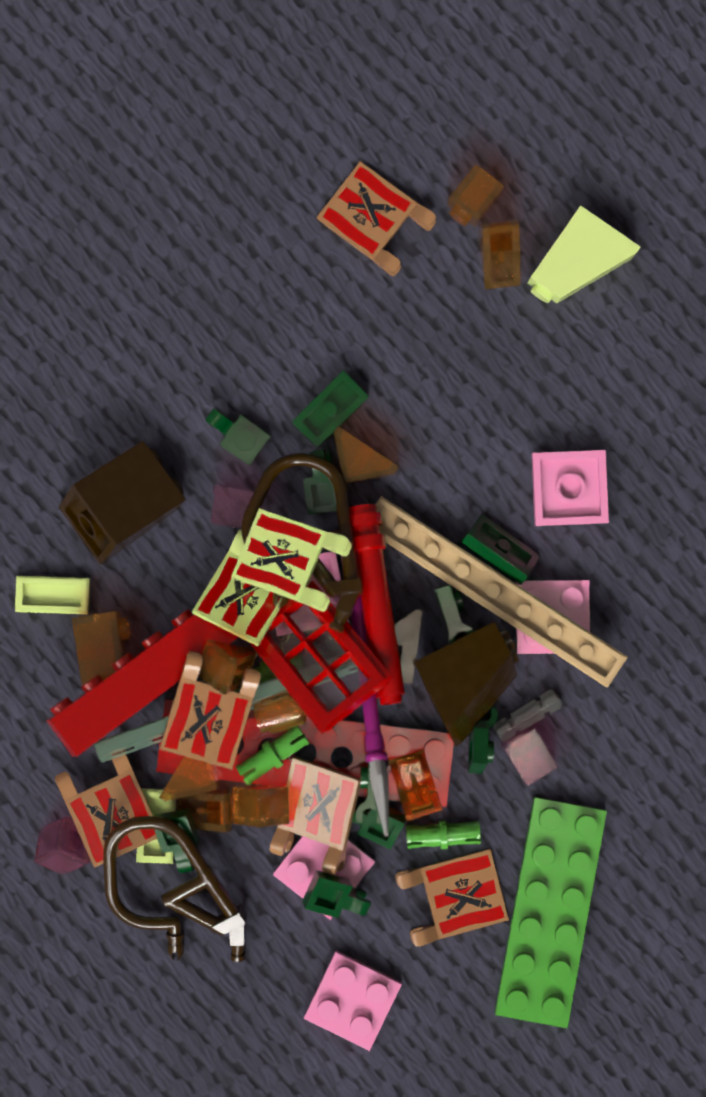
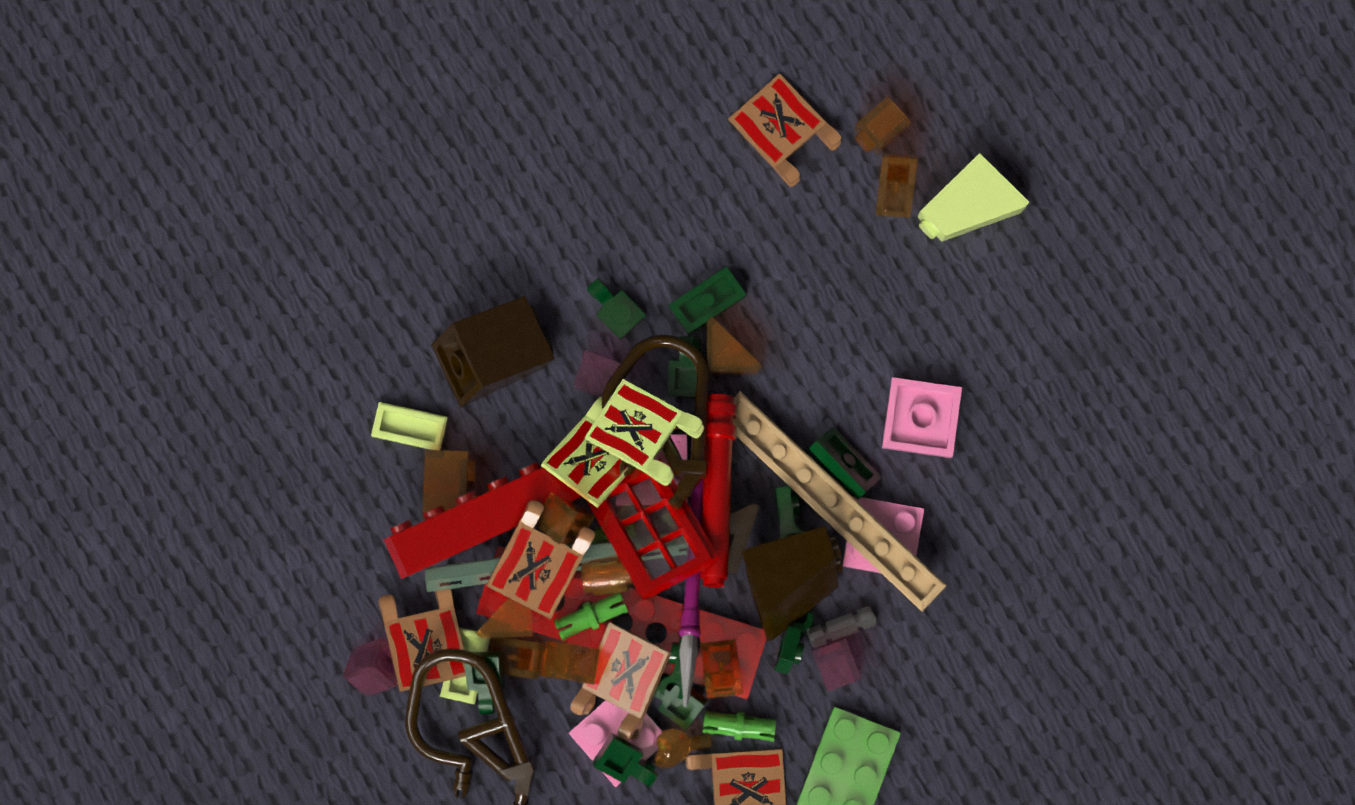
camera: 10 degrees right, 5 degrees down
(383, 867) = (676, 745): none -> clear orange rock

